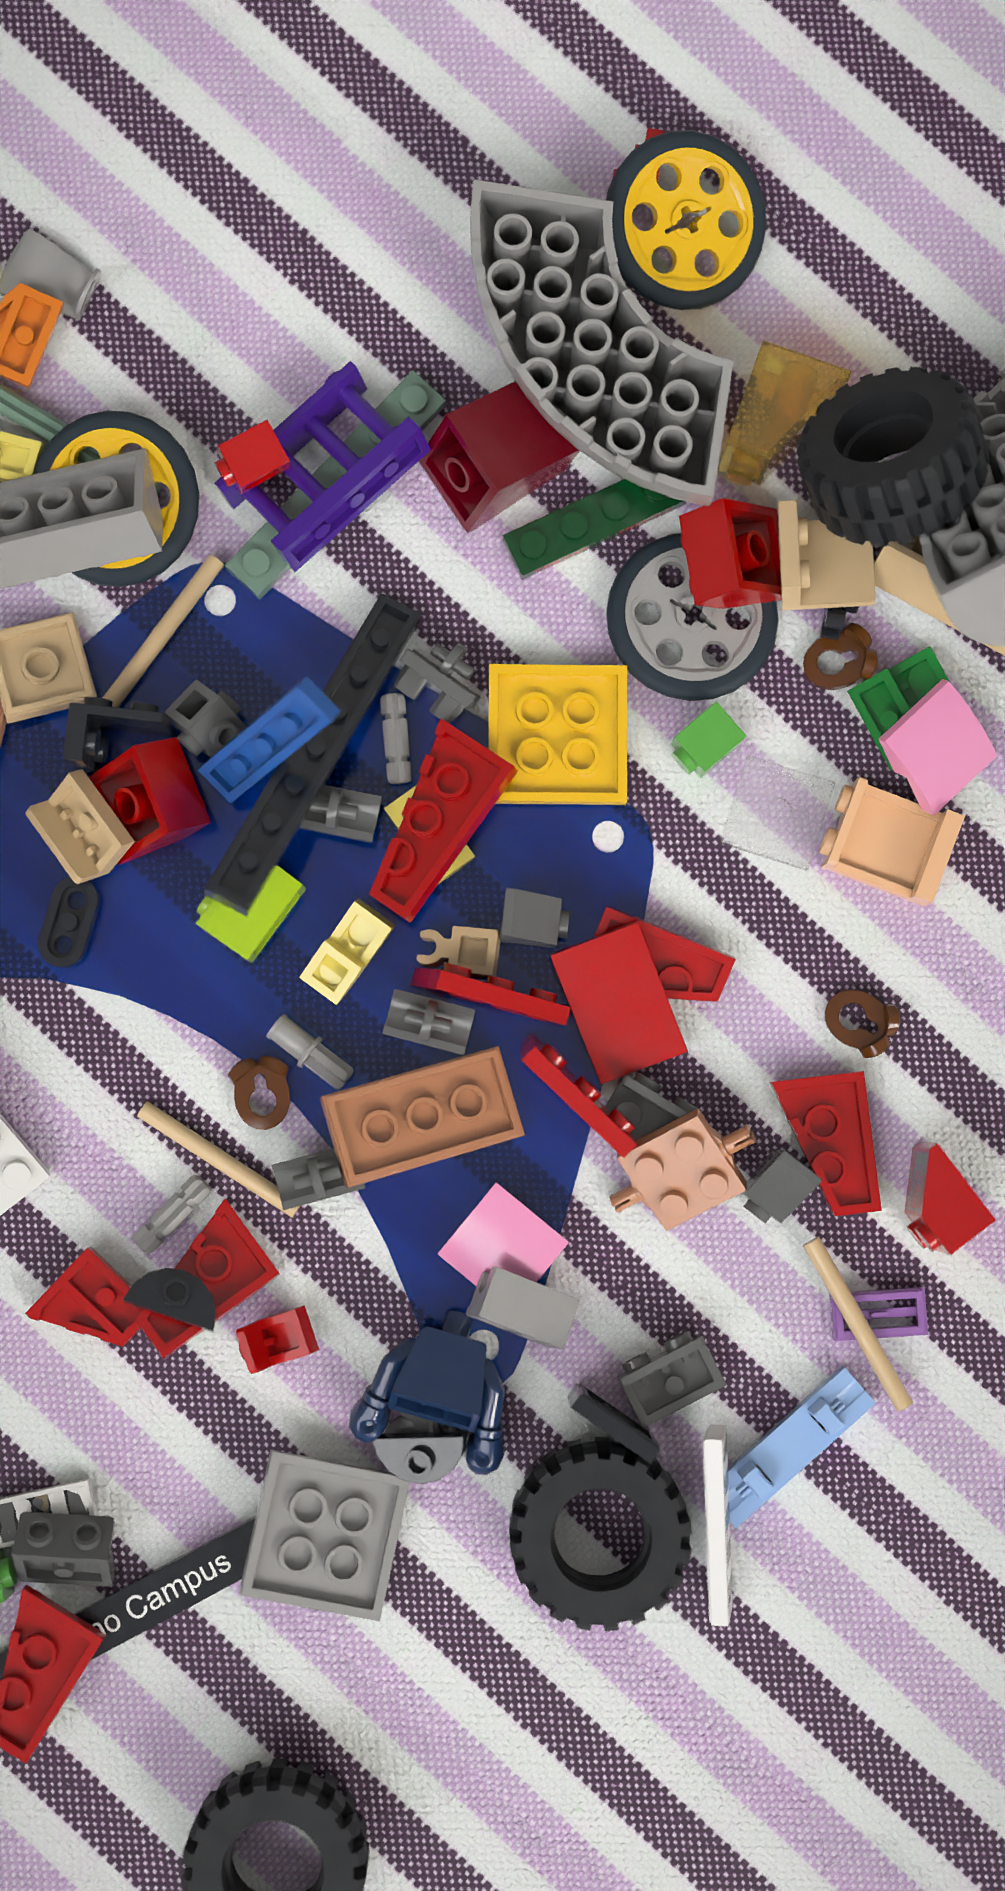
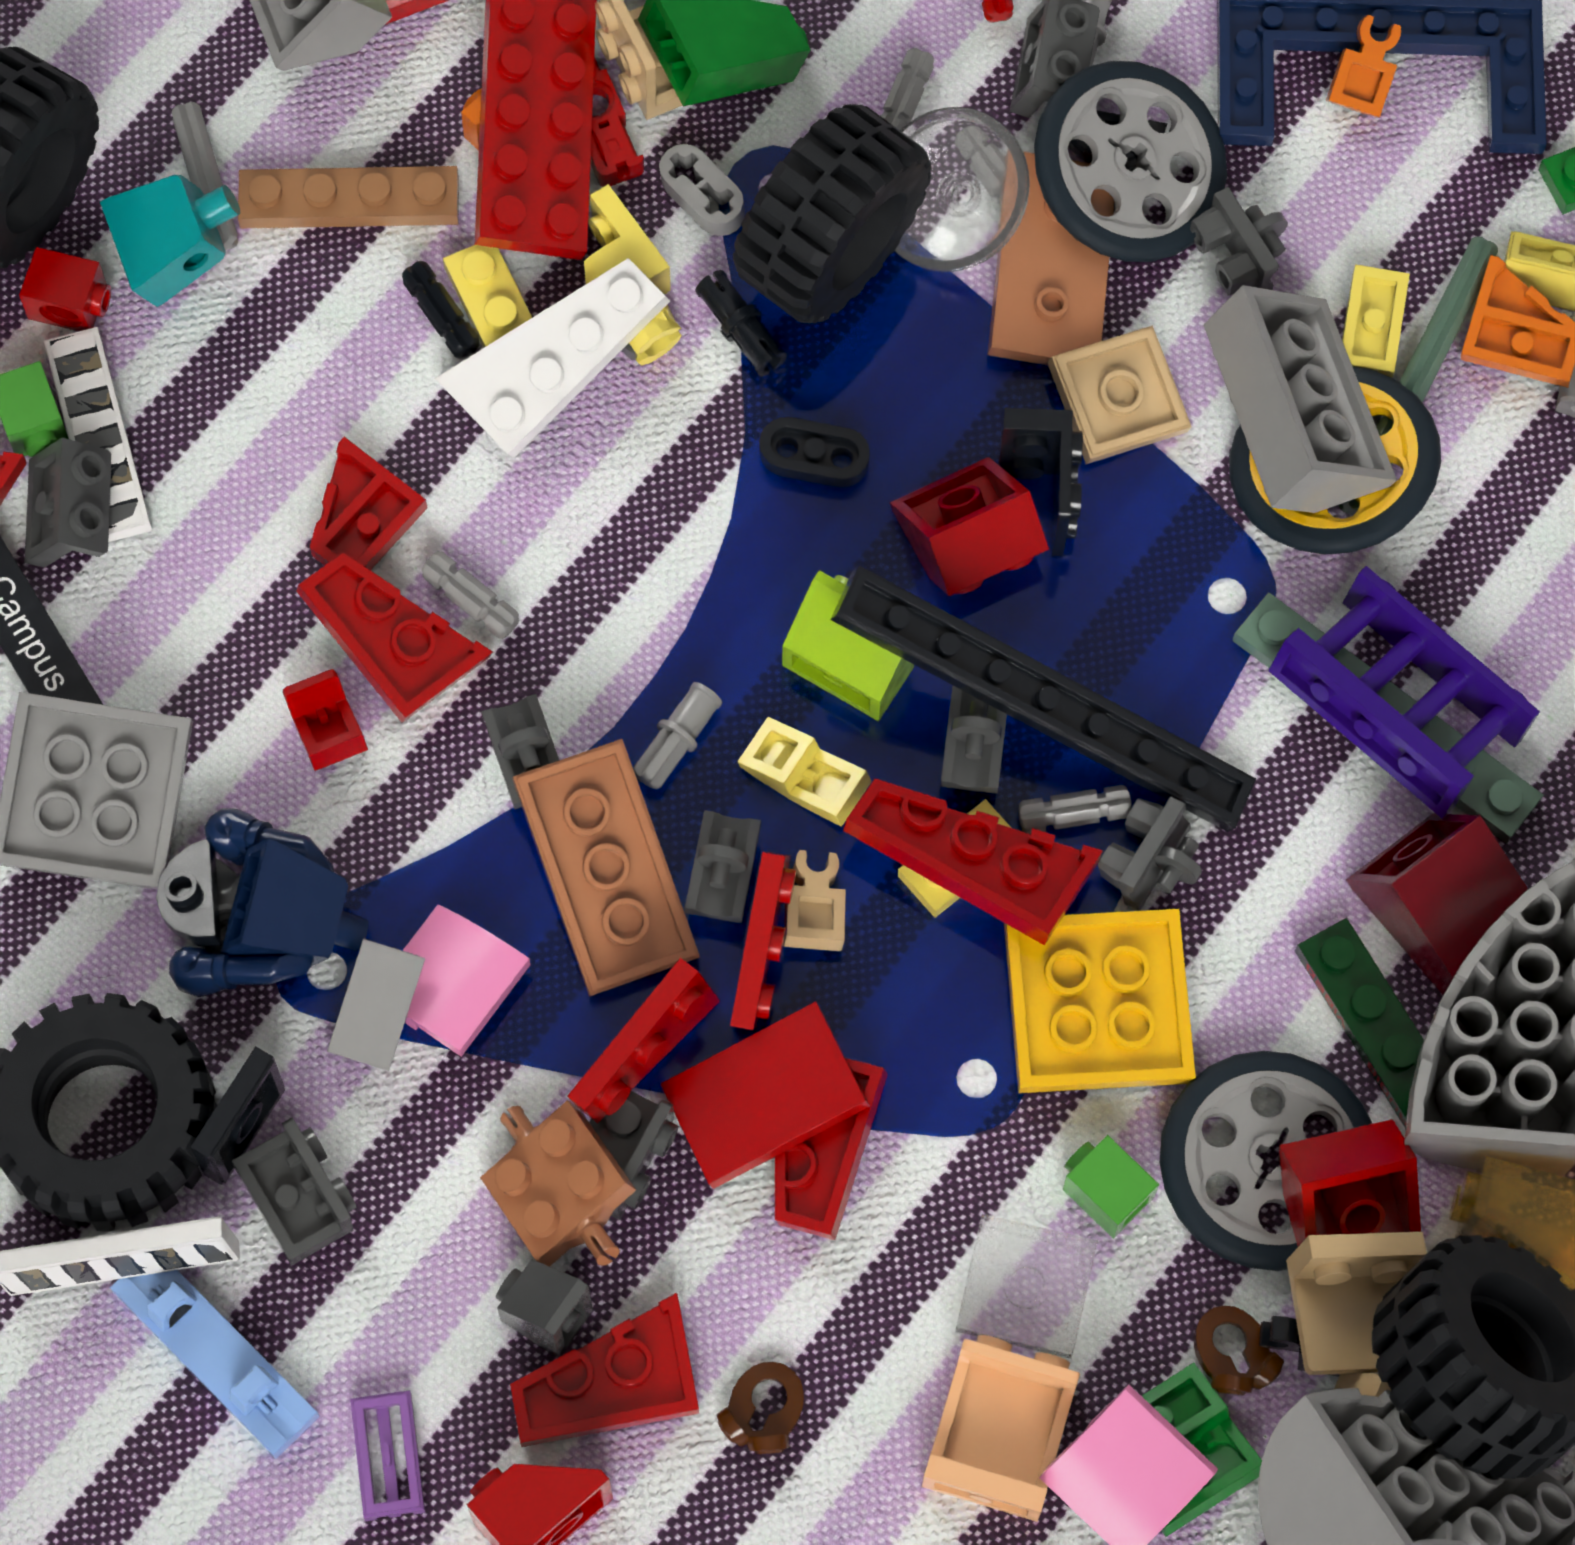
camera: 85 degrees right, 15 degrees down
(80, 828) = (926, 450): tan bracket -> none
(164, 630) = (1179, 530): tan bar -> none
(176, 1296) = (372, 593): black plate -> none
(205, 719) = (1070, 581): dark grey brick -> none
(213, 1155) = (545, 634): tan bar -> none
(251, 458) = (1398, 599): red brick -> none
(269, 739) = (1048, 632): blue piece -> none
(275, 1073) = (643, 662): reddish brown piece -> none
(533, 919) = (860, 975): dark grey slope -> none
(858, 1324) = (373, 1421): tan bar -> none

